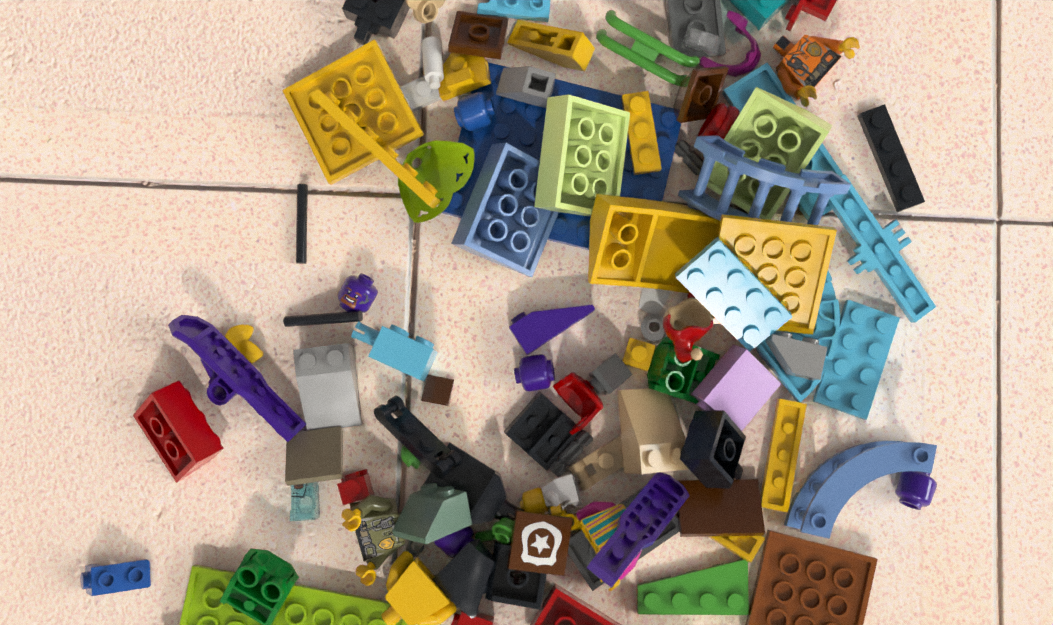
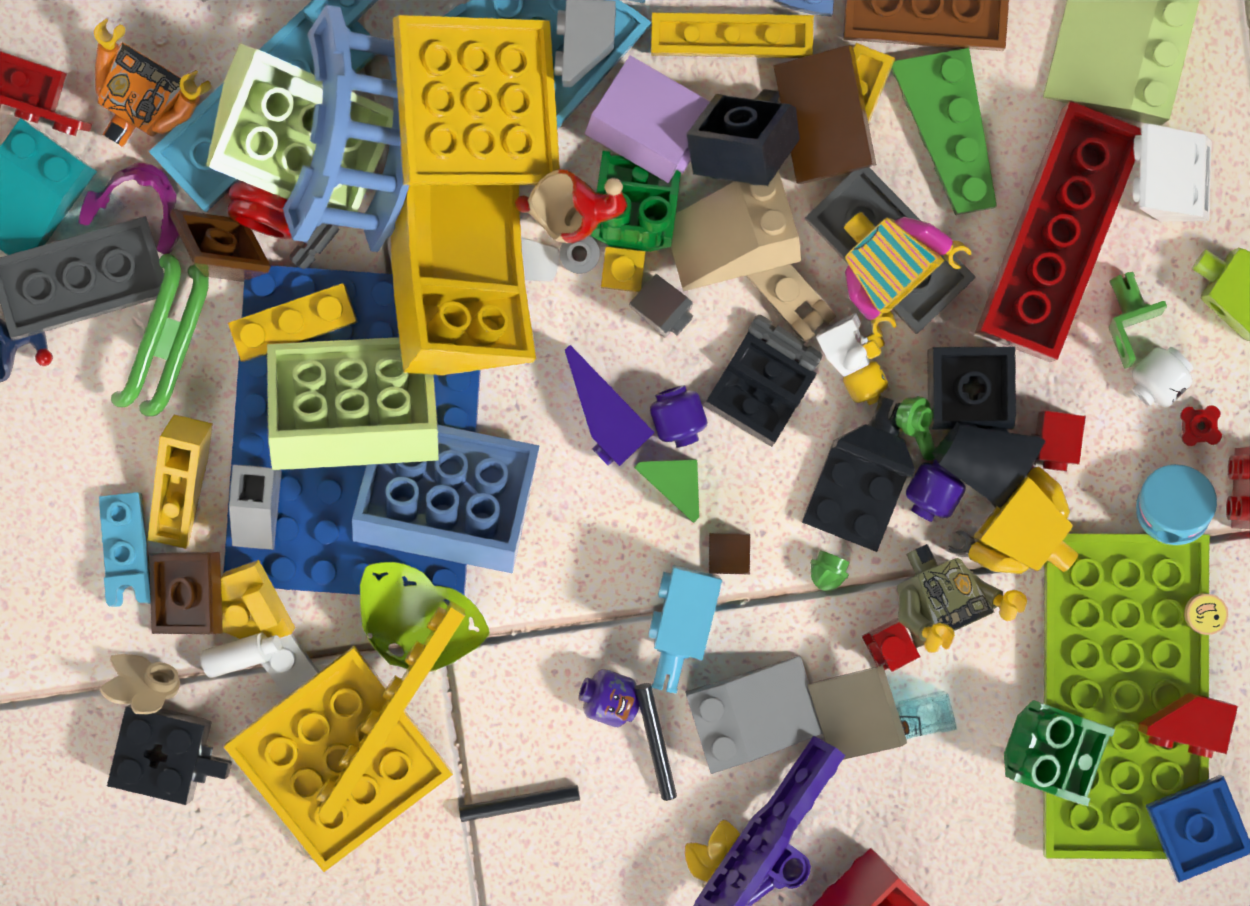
camera: 100 degrees left, 5 degrees up
(417, 437) = (804, 570): black plate -> none
(433, 514) = (909, 524): sand green slope -> none
(474, 111) = (307, 576): blue head -> none
(491, 363) = (676, 481): none -> bright green slope
(539, 543) = (922, 364): reddish brown tile -> none
(580, 398) = (703, 342): red piece -> none
(639, 526) = (871, 226): dark purple piece -> none
(701, 42) = (138, 255): clear piece -> none
(733, 294) = (515, 147): plate -> none

